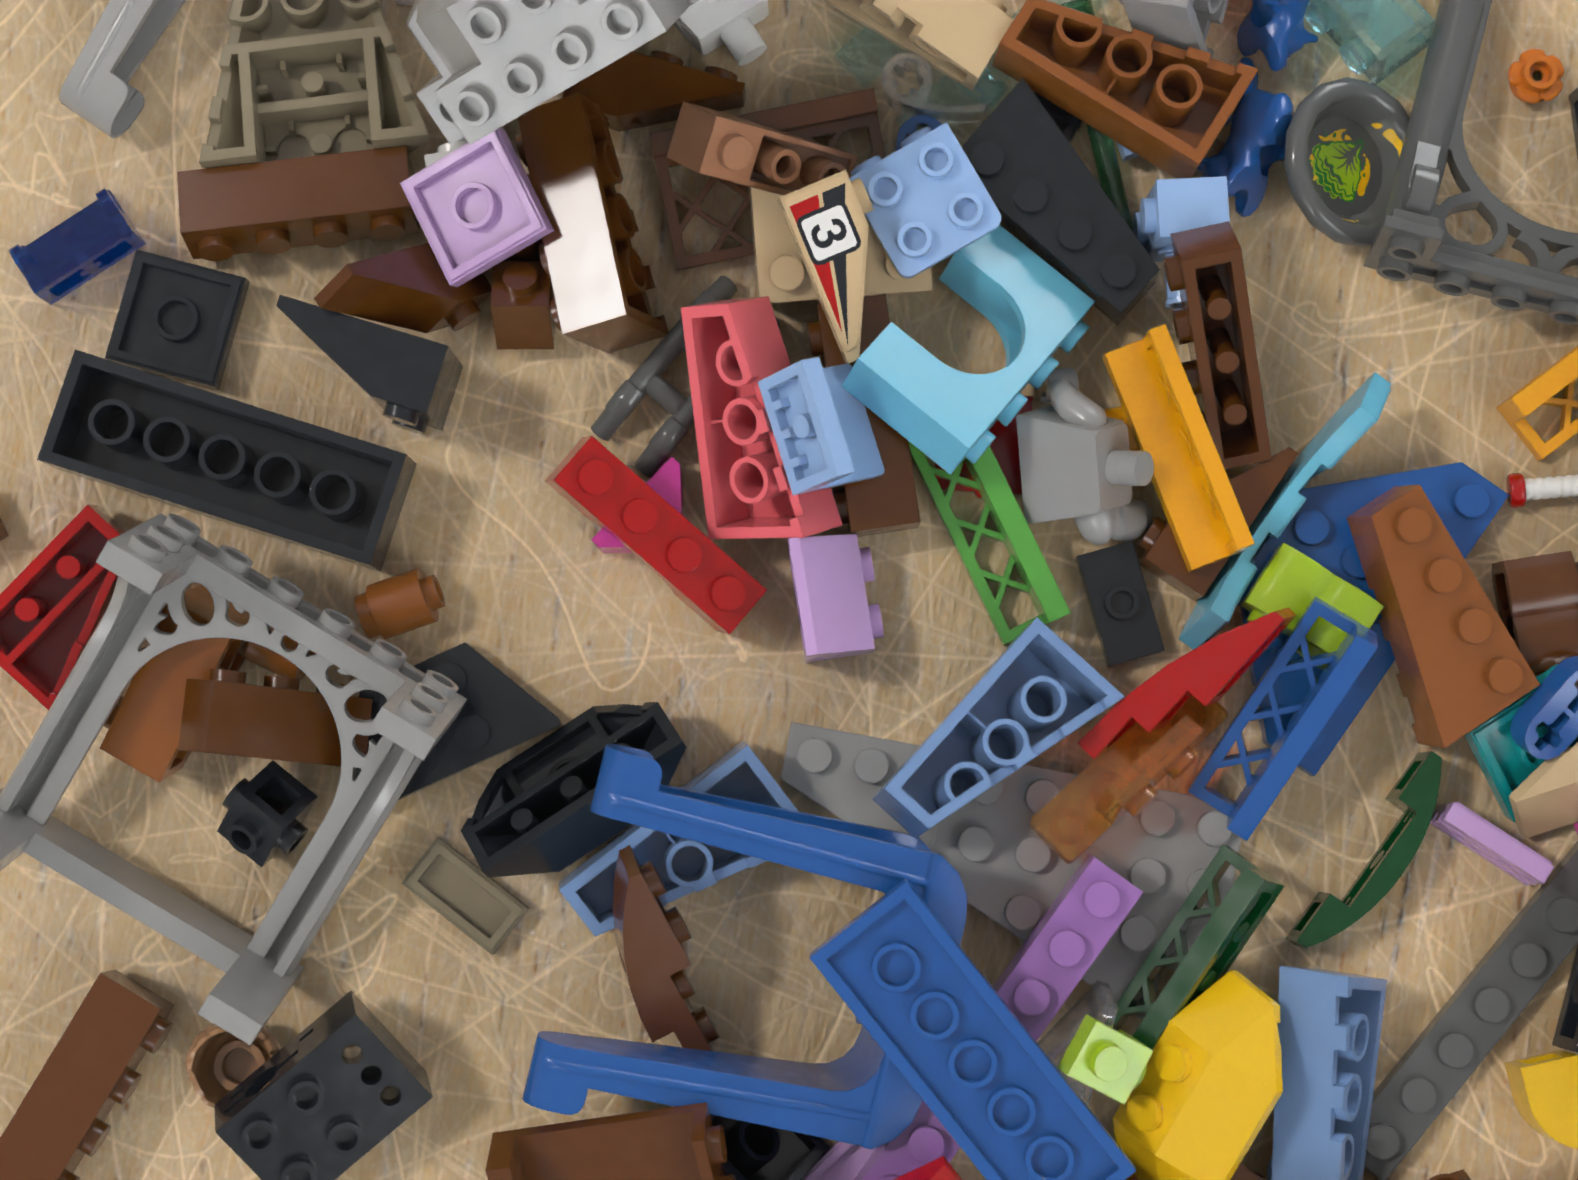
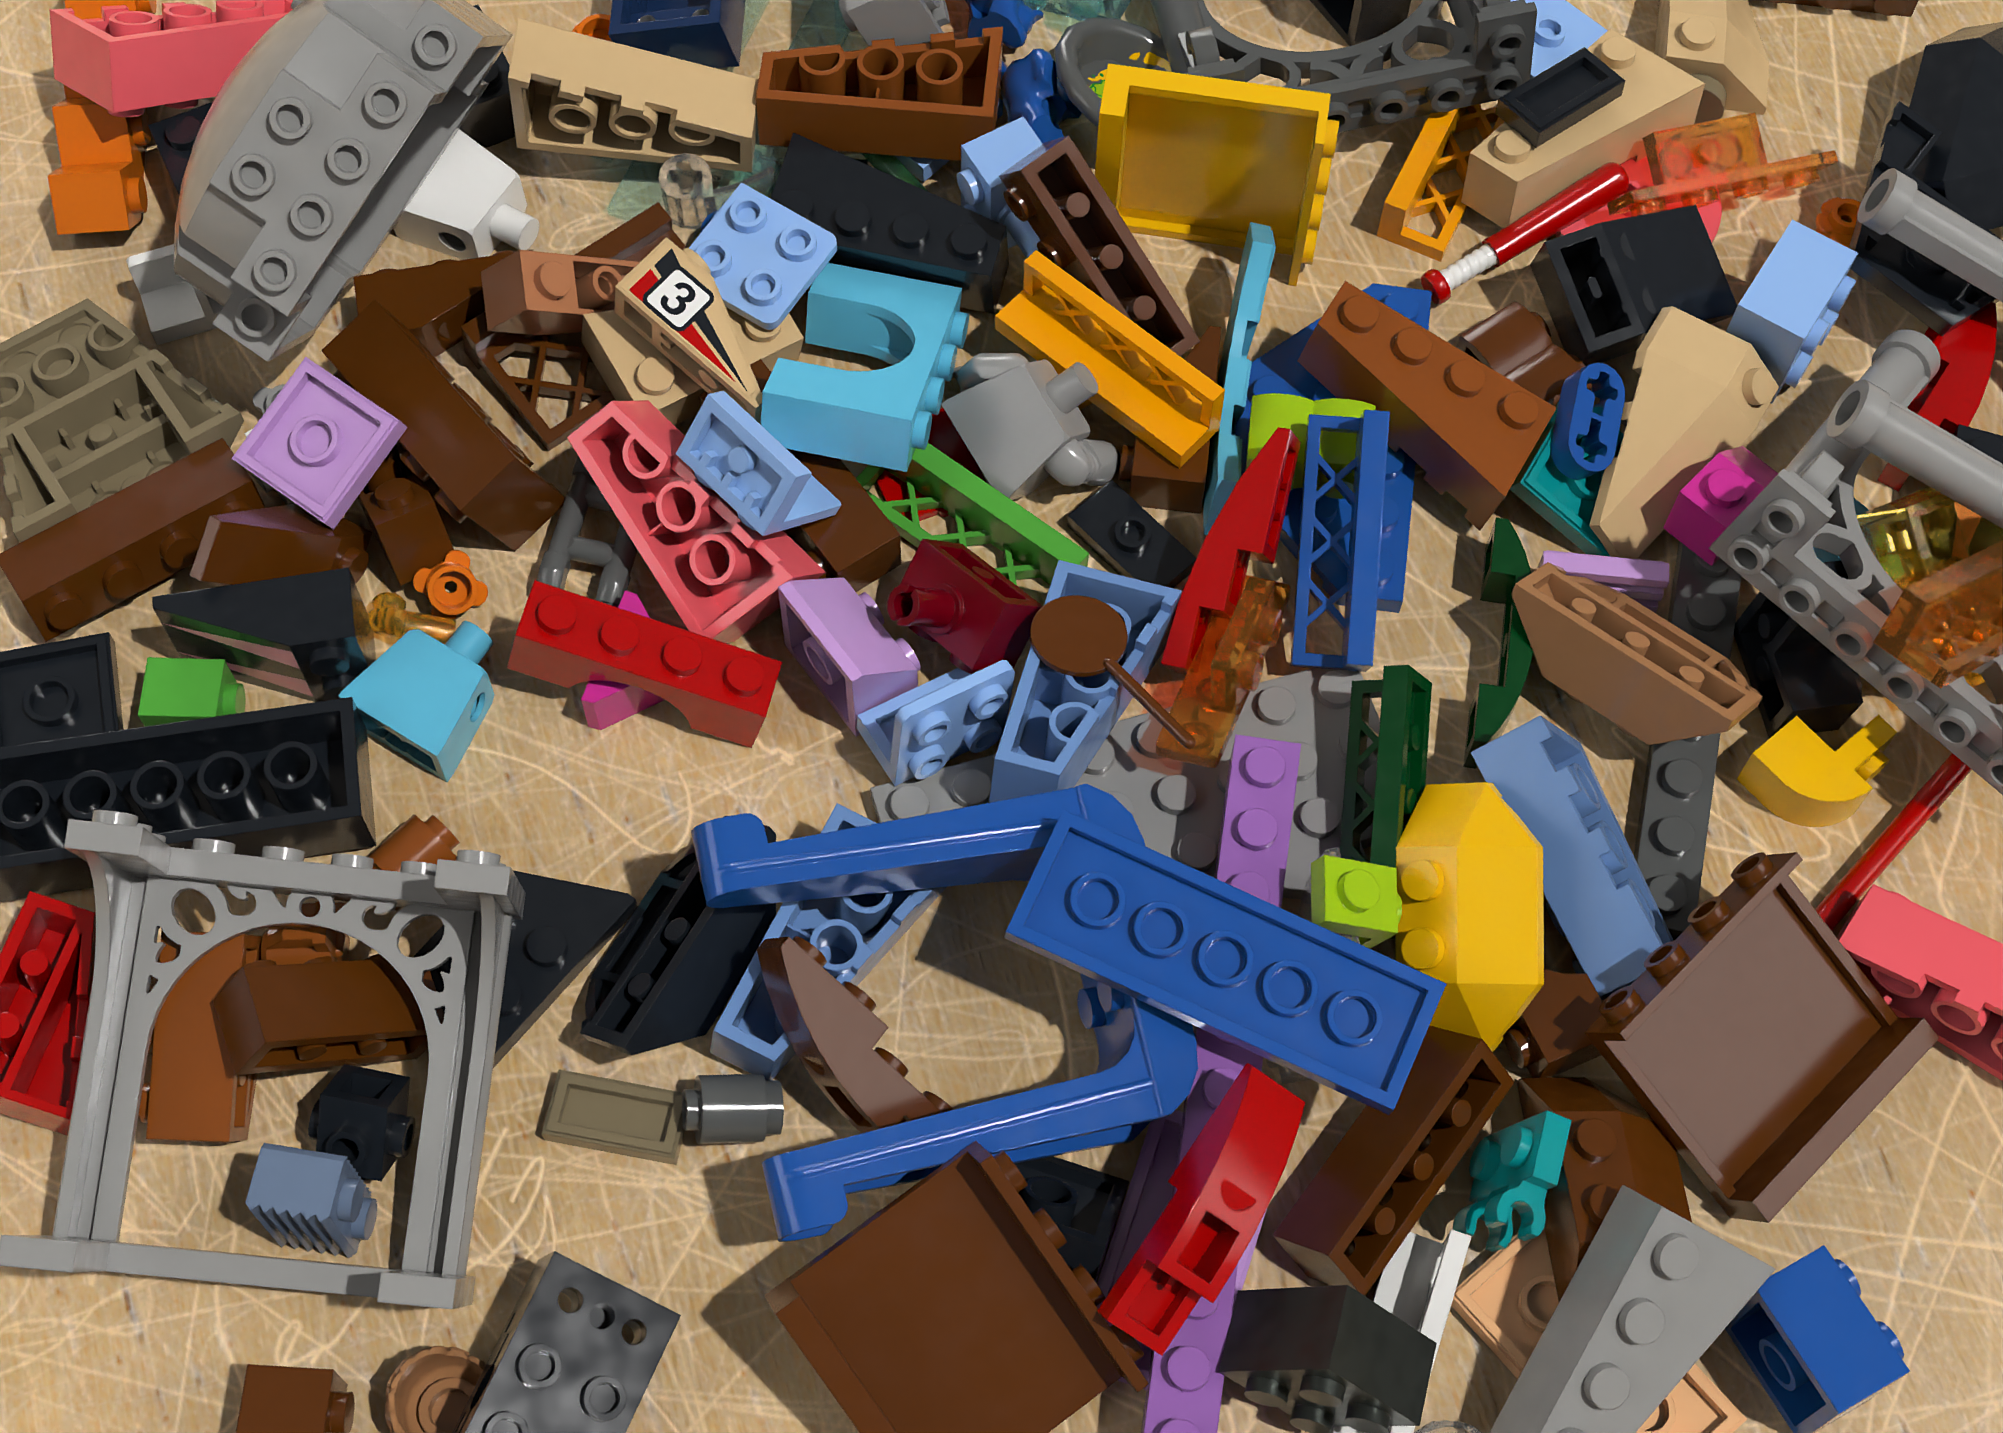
camera: 30 degrees left, 20 degrees down
(200, 863) = (311, 1199): none -> sand blue brick
(286, 374) = (188, 690): none -> bright green brick
(474, 463) = (427, 696): none -> medium azure torso
(487, 390) = (392, 621): none -> clear yellow arm
(537, 383) = (455, 569): none -> orange plate
(553, 941) = (733, 1108): none -> dark grey brick
(869, 693) = (938, 721): none -> light blue bracket
(941, 609) = (963, 606): none -> dark red brick
(1016, 707) = (1087, 639): none -> reddish brown piece
(1371, 310) = (1213, 156): none -> yellow panel
(1471, 942) = (1628, 660): none -> medium nougat wedge

